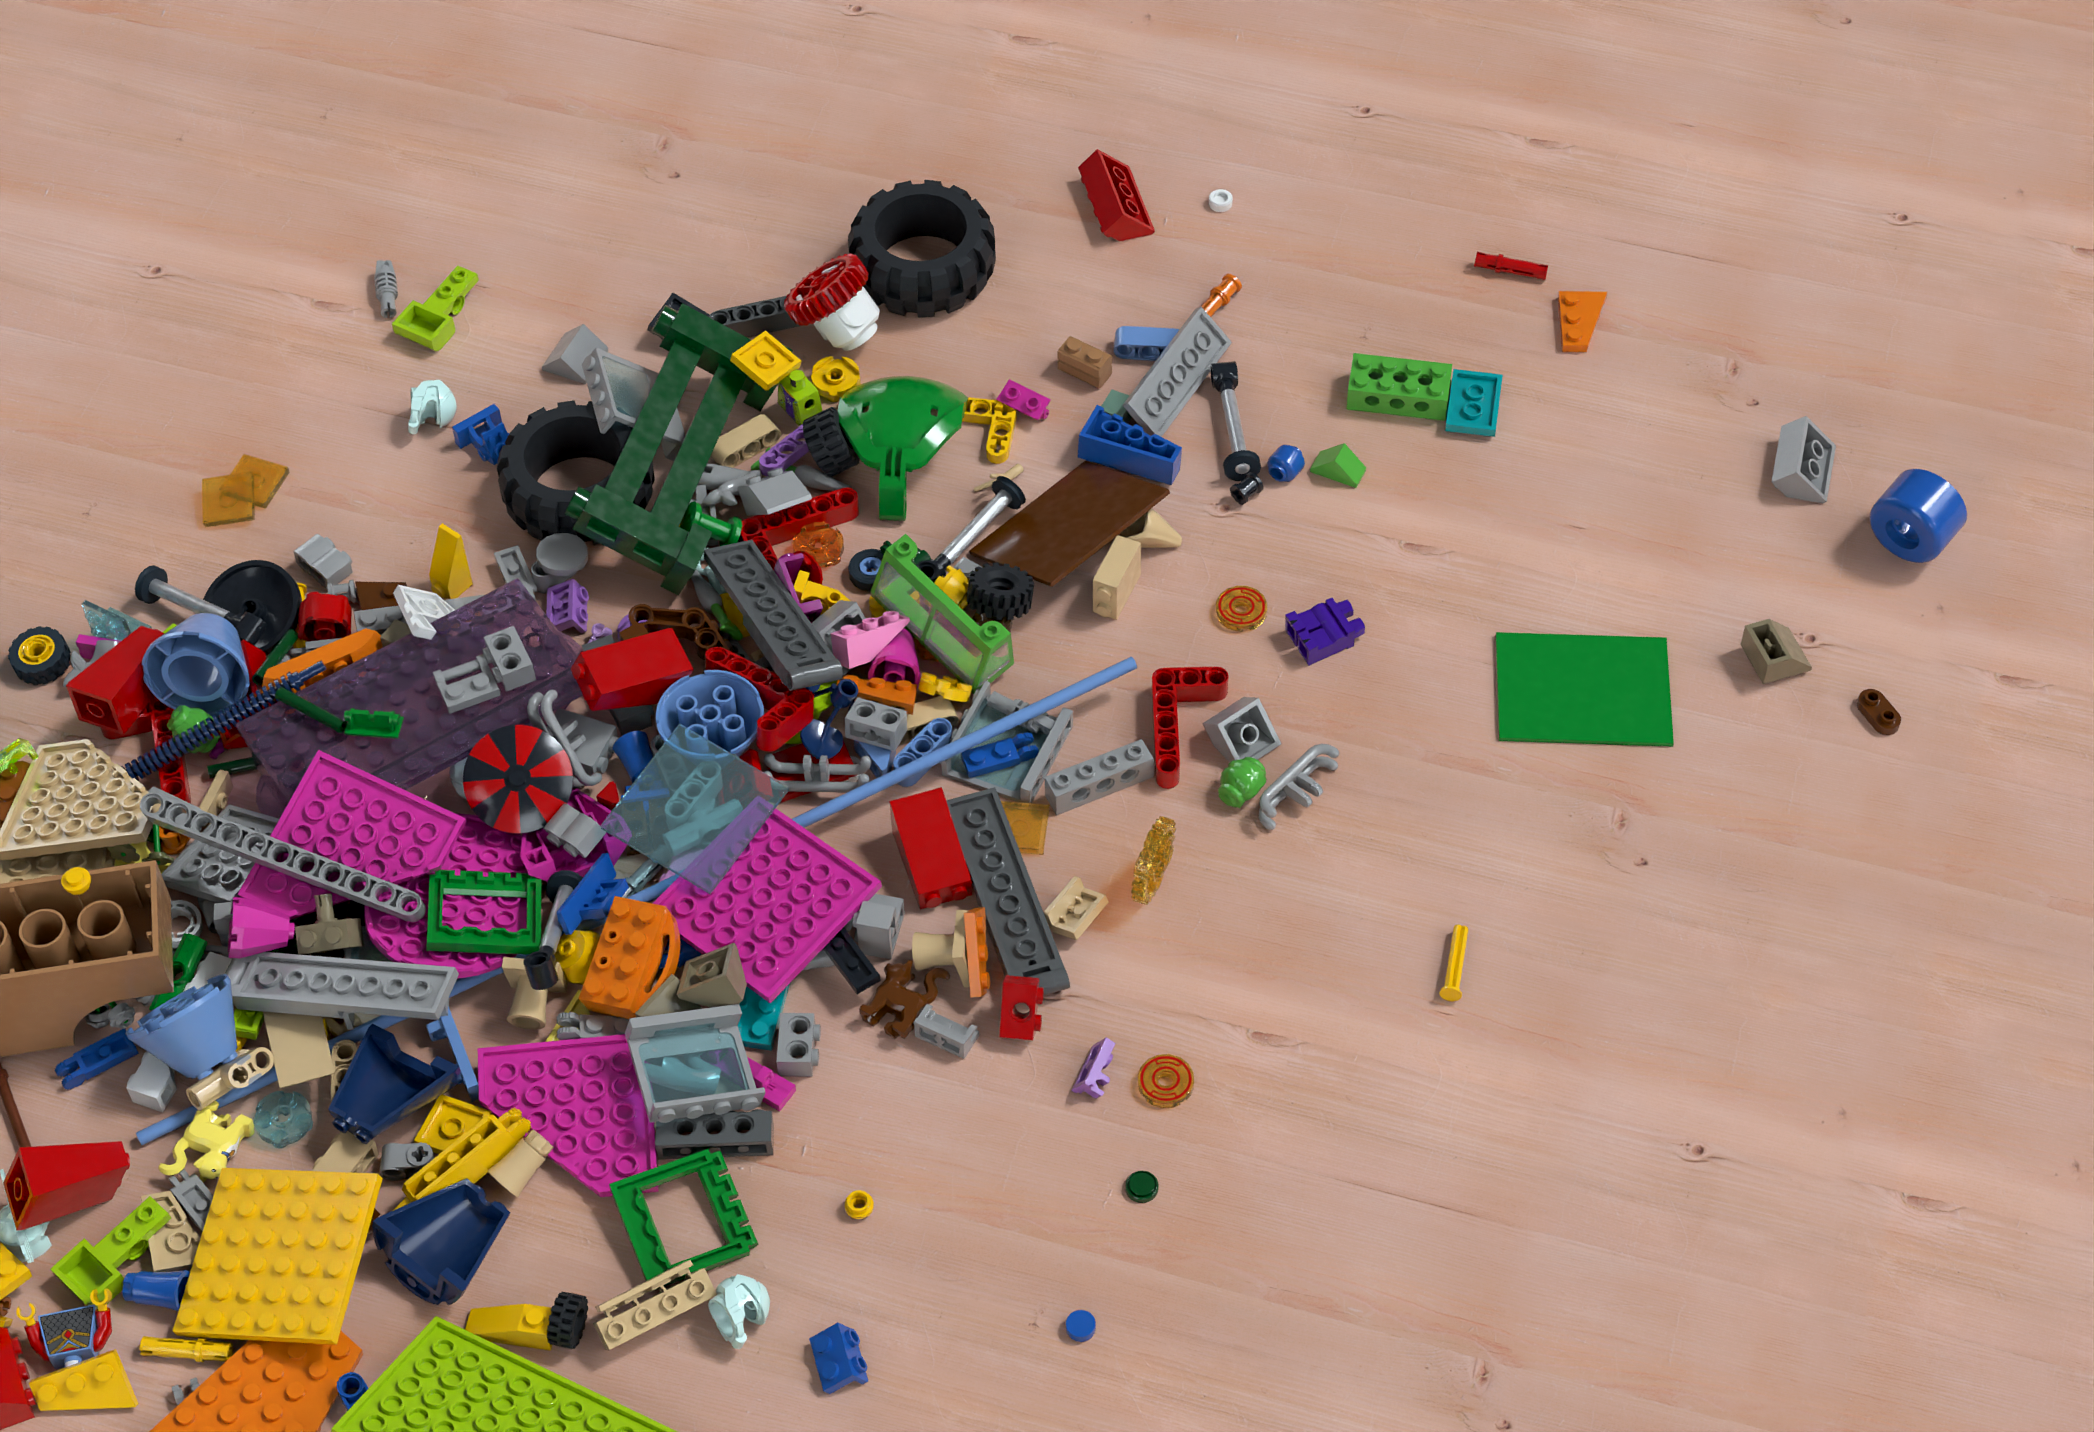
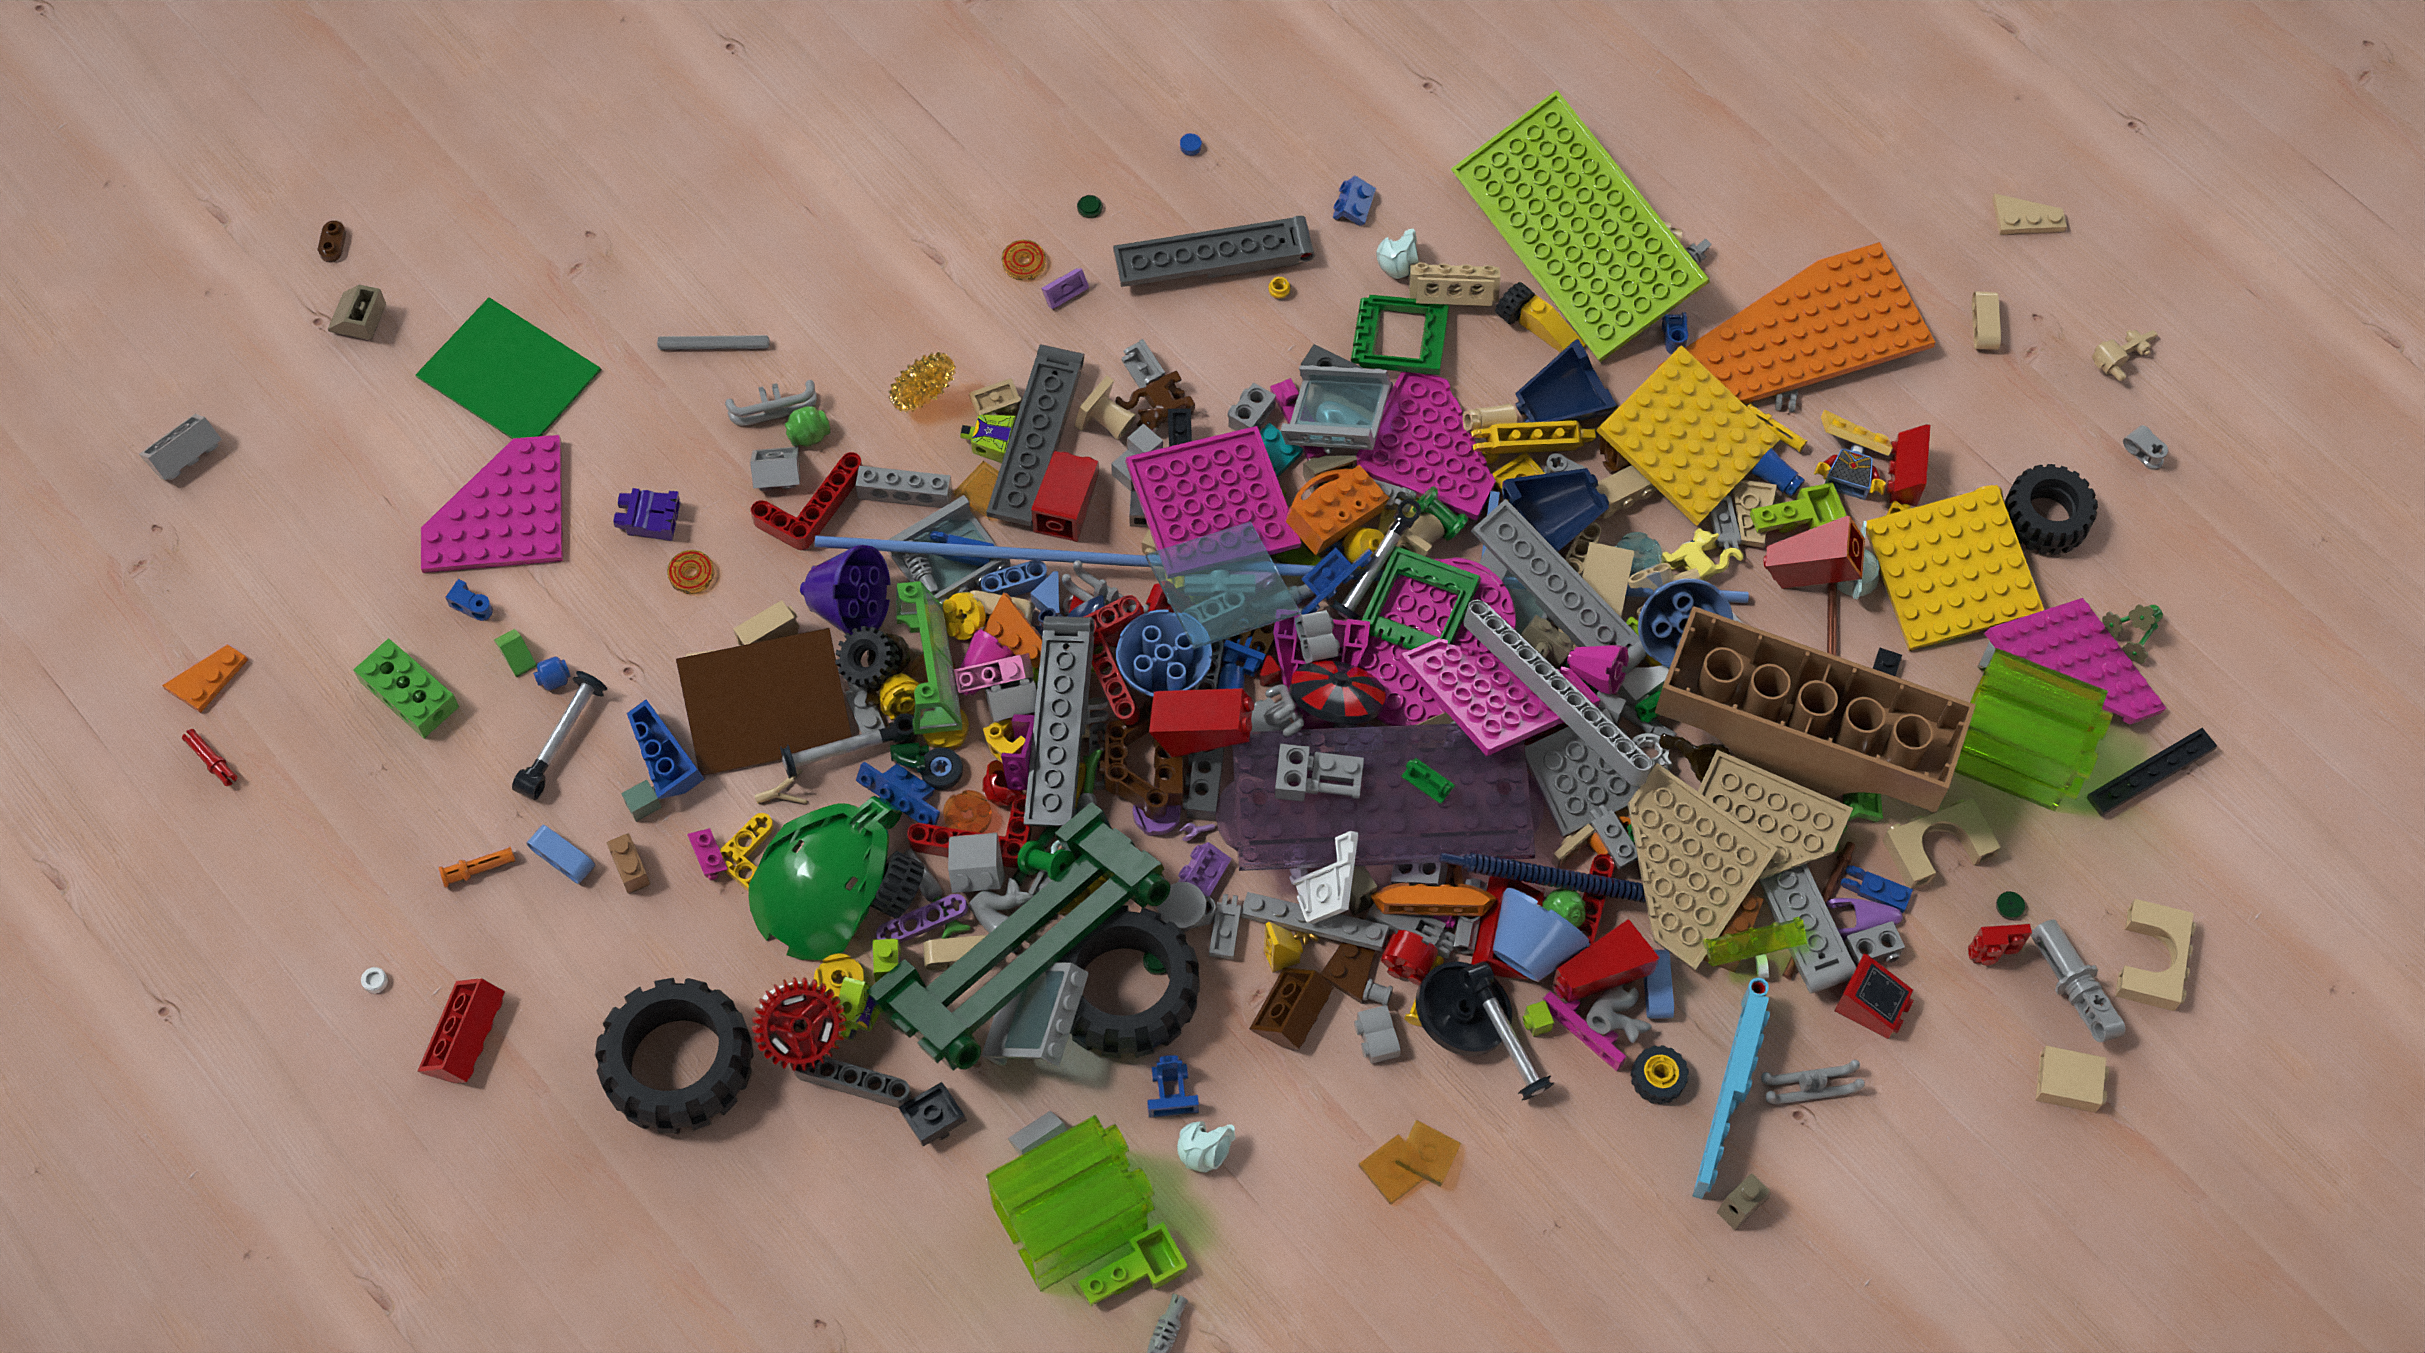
camera: 150 degrees left, 10 degrees up
(68, 722) = (1659, 989): none -> medium blue beam
(76, 880) = (1731, 694): yellow plate -> none
(110, 622) = (1582, 1063): clear light blue bracket -> none
(276, 655) = (1468, 932): dark green piece -> none
(311, 710) = (1471, 821): dark green piece -> none
(411, 540) = (1292, 1007): none -> reddish brown slope
(511, 293) = (1071, 1200): none -> clear neon green brick
(536, 1025) = (1451, 523): none -> green piece
(714, 978) = (1288, 458): dark tan slope -> none
(765, 360) = (902, 971): yellow plate -> none
(804, 348) = (858, 1007): none -> lime torso
(876, 724) = (1042, 598): light grey brick -> none
(881, 530) = (901, 790): none -> blue bracket
(954, 1195) = (1215, 252): none -> dark grey hinge
(976, 951) = (1081, 393): orange wing -> none
(1012, 1022) = (1087, 341): red brick -> none
(1052, 870) = (989, 435): none -> torso
(1065, 637) = (849, 589): none -> dark purple cone
(1177, 373) = (566, 800): light grey plate -> none
(1246, 488) = (601, 668): black bush -> none
(1411, 819) = (713, 342): none -> light grey axle
(1414, 478) = (469, 603): none -> blue leg
(1455, 964) = (773, 230): yellow axle -> none
(1460, 567) = (503, 513): none -> dark pink plate
(1474, 402) = (359, 641): teal plate -> none
(1918, 515) = (161, 334): blue piece -> none

